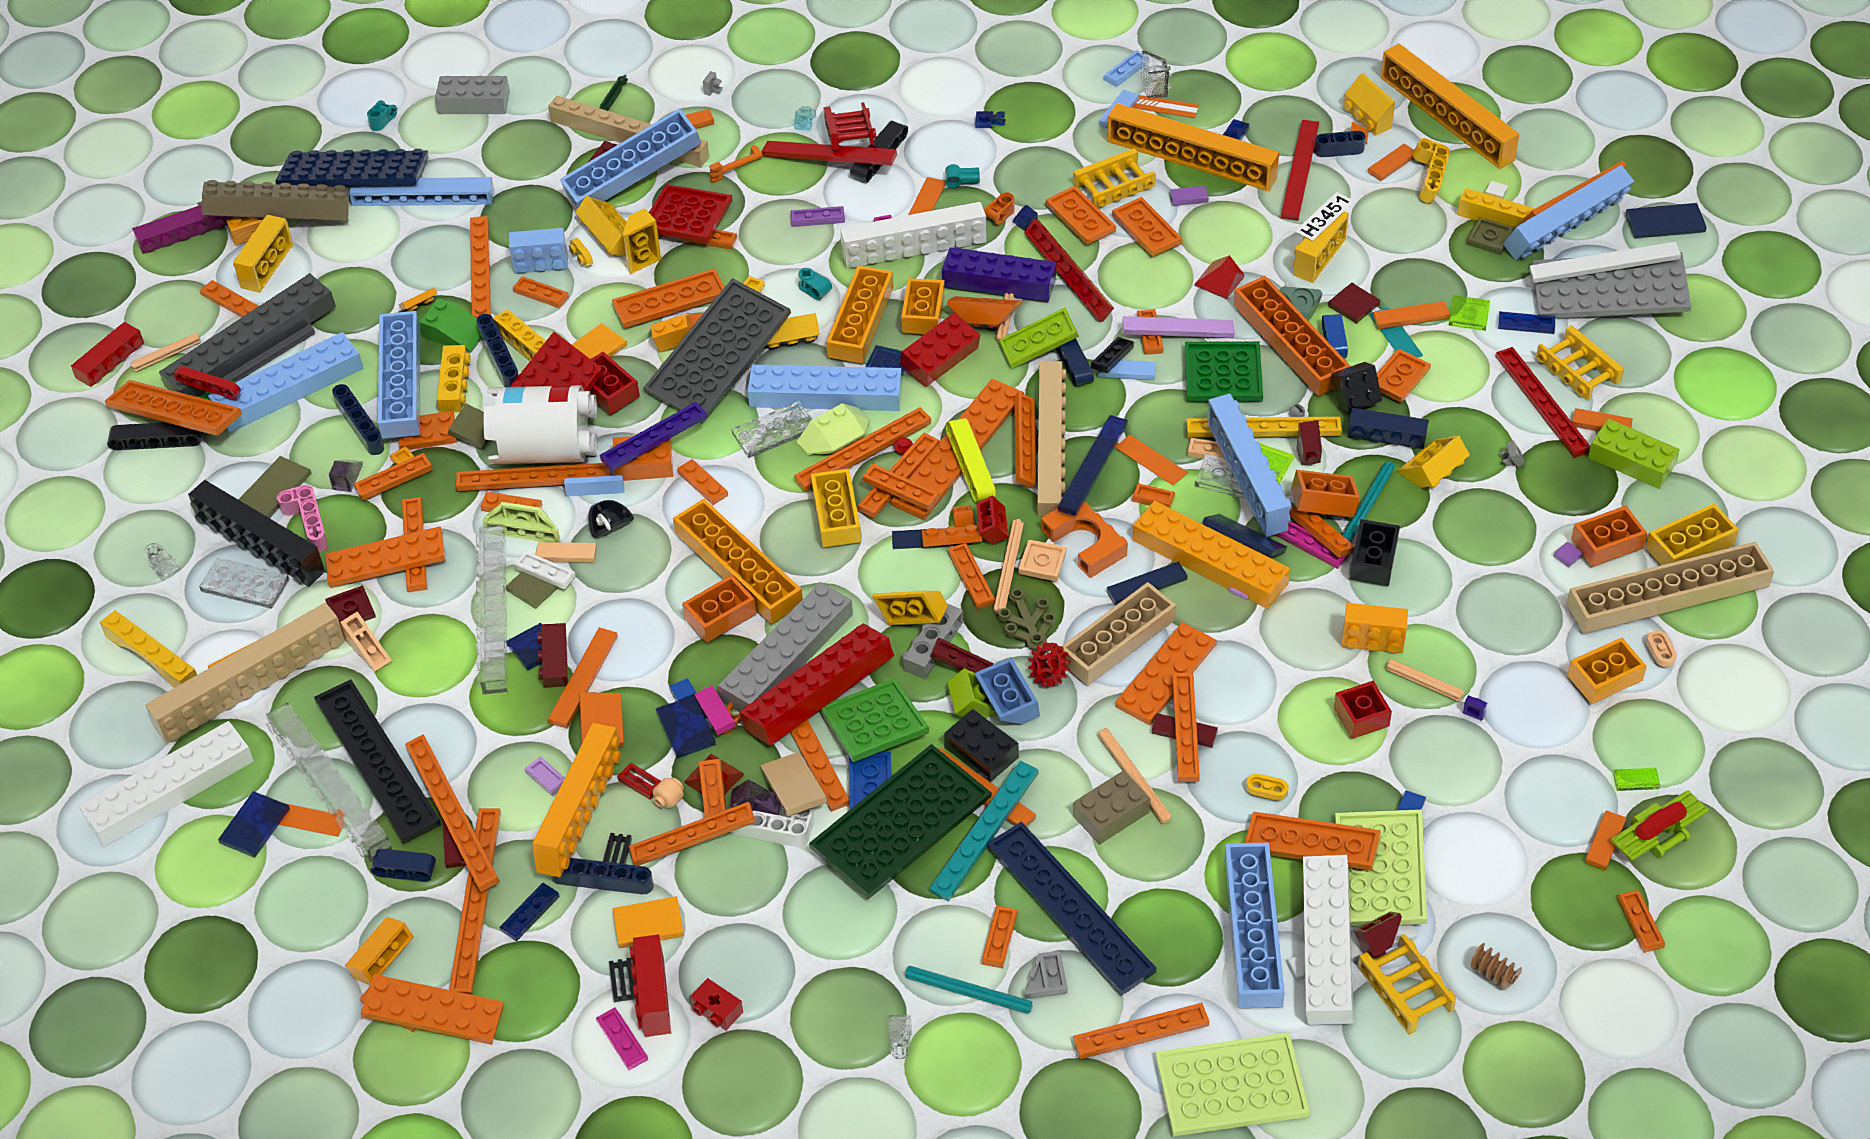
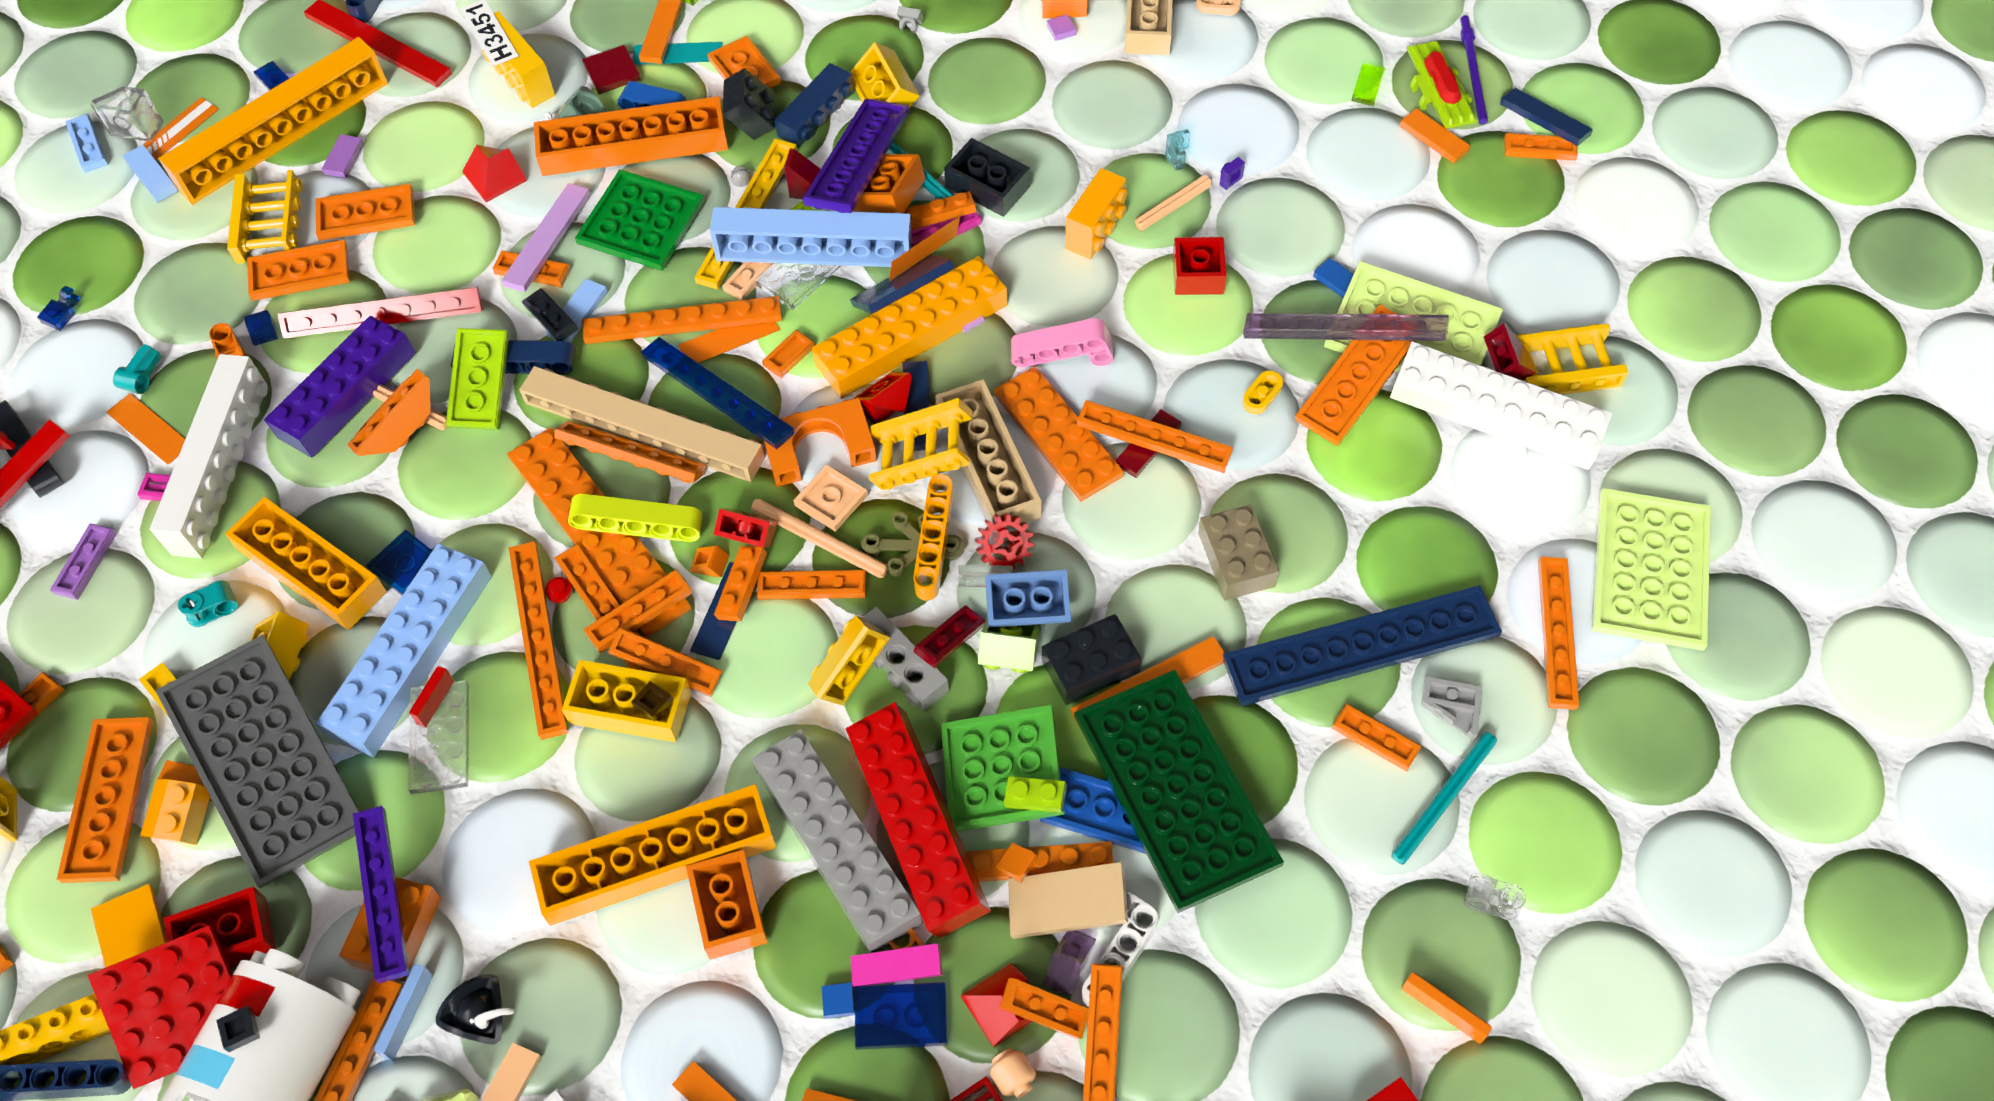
camera: 70 degrees left, 10 degrees up
(536, 394) = (238, 1029): none -> black plate
(702, 482) = (476, 860): orange plate -> none
(793, 410) = (431, 696): none -> red tile
(805, 1023) = (1447, 1008): none -> orange tile
(808, 749) = (1017, 862): none -> orange slope
(833, 513) = (652, 700): none -> dark brown plate
(834, 430) = (489, 663): yellowish green wedge -> none
(857, 737) = (1035, 794): none -> lime plate
(872, 516) = (664, 660): none -> orange tile
(922, 305) = (341, 486): light orange brick -> none
(940, 349) = (428, 492): red brick -> none
(984, 831) = (1221, 700): teal plate -> none
(1017, 656) = (975, 574): none -> clear tile
(1032, 621) = (933, 547): none -> light orange beam
(1090, 588) = (910, 426): none -> yellow fence
(1129, 767) = (1186, 515): light nougat axle -> none
(1139, 560) = (885, 396): none -> red slope
(1150, 428) = (681, 320): none -> orange plate
(1243, 649) = (1063, 342): none -> bright pink beam
(1253, 925) = (1455, 469): light blue brick -> none
(1281, 535) = (924, 248): none -> orange sticker
(1336, 461) = (856, 156): none -> dark purple plate
(1347, 816) = (1347, 326): none -> tile
(1480, 661) = (1175, 146): none -> clear light blue bracket
(1494, 968) = (1570, 277): medium nougat piece -> none
(1606, 670) = (1234, 50): light orange brick -> none
(1674, 914) = (1546, 116): none -> dark blue tile
(1738, 837) = (1468, 37): none -> dark purple bar

